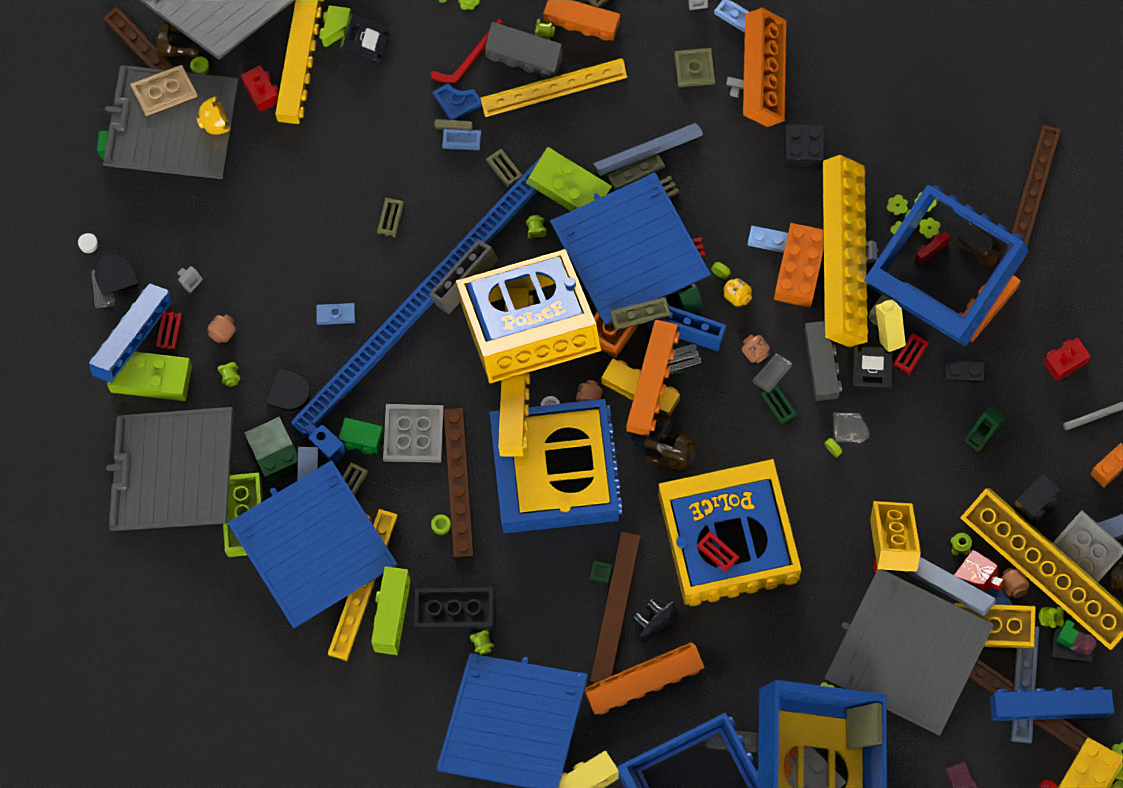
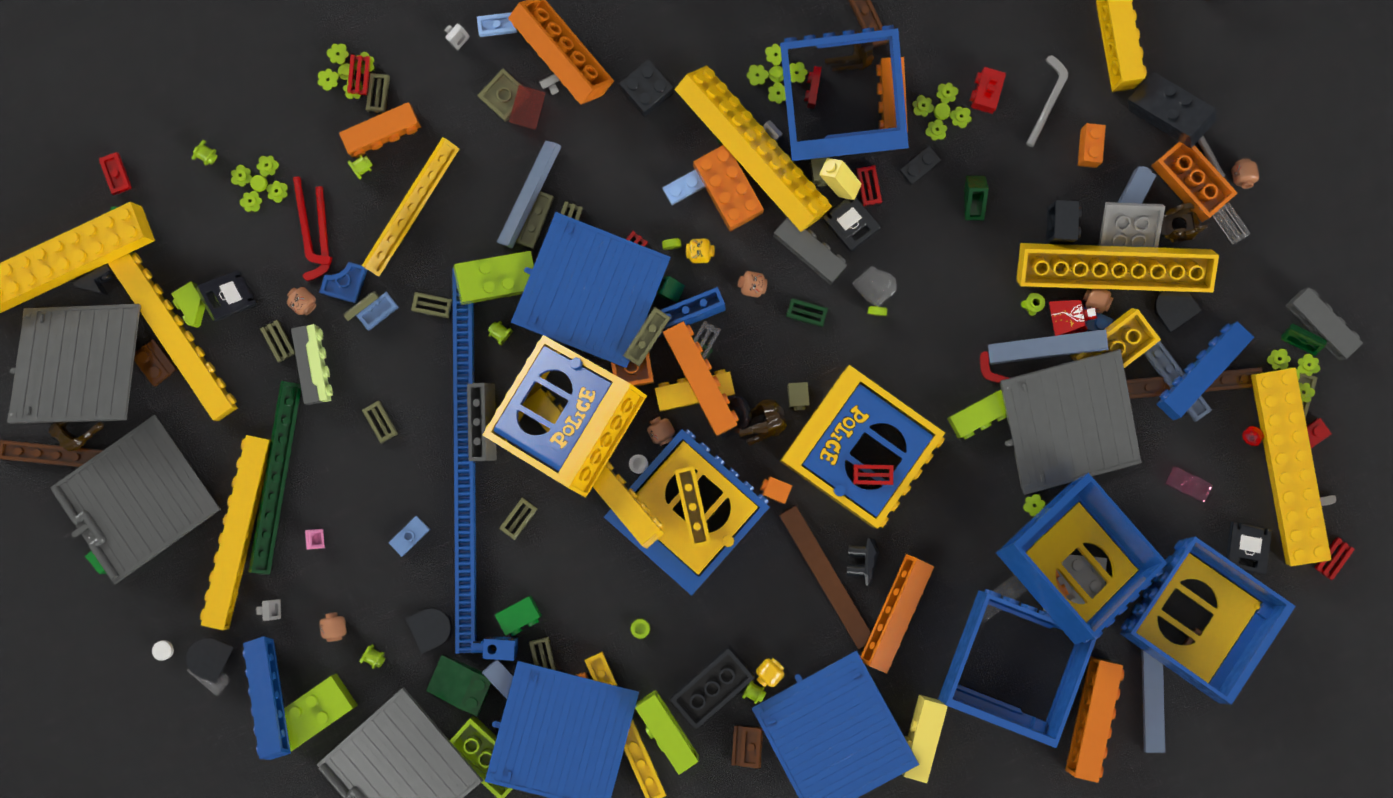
camera: 45 degrees left, 15 degrees up
(163, 90) = (105, 478): tan tile -> none
(171, 316) = (285, 665): red tile -> none
(200, 65) = (114, 430): lime tile -> none
(213, 117) = (166, 468): yellow cylinder -> none
(217, 206) = (236, 534): none -> yellow brick
(260, 89) = (179, 407): red brick -> none
(267, 257) = (314, 539): none -> bright pink slope
(271, 44) = (154, 362): none -> reddish brown plate
(280, 191) = (275, 478): none -> dark green plate
(375, 87) = (276, 323): none -> olive tile
(379, 136) = (311, 364): none -> piece
(413, 433) = (555, 577): light grey plate -> none
(414, 87) = (301, 301): none -> nougat head
(427, 369) = (511, 515): none -> olive tile
(439, 678) = (747, 746): none -> reddish brown plate
(450, 62) = (310, 255): none -> red piece
(458, 483) = (624, 585): reddish brown plate -> none
(507, 638) = (770, 672): none -> yellow head
(523, 50) = (360, 198): dark grey slope -> none
(561, 455) = (692, 507): none -> yellow brick
(601, 572) = (791, 558): dark green tile -> none
(635, 507) = (775, 489): none -> orange brick
(703, 88) = (527, 107): none -> clear red plate
(716, 457) = (798, 395): none -> olive brick
(772, 372) = (781, 291): clear tile -> none
(839, 588) = (978, 415): none -> lime brick
(864, 726) = (1091, 509): olive tile -> none
(895, 536) = (989, 344): yellow brick -> none
(1017, 347) = (941, 111): none -> lime plant
(1051, 617) = (1146, 302): lime brick -> none
(1076, 640) = (1185, 304): leg -> none

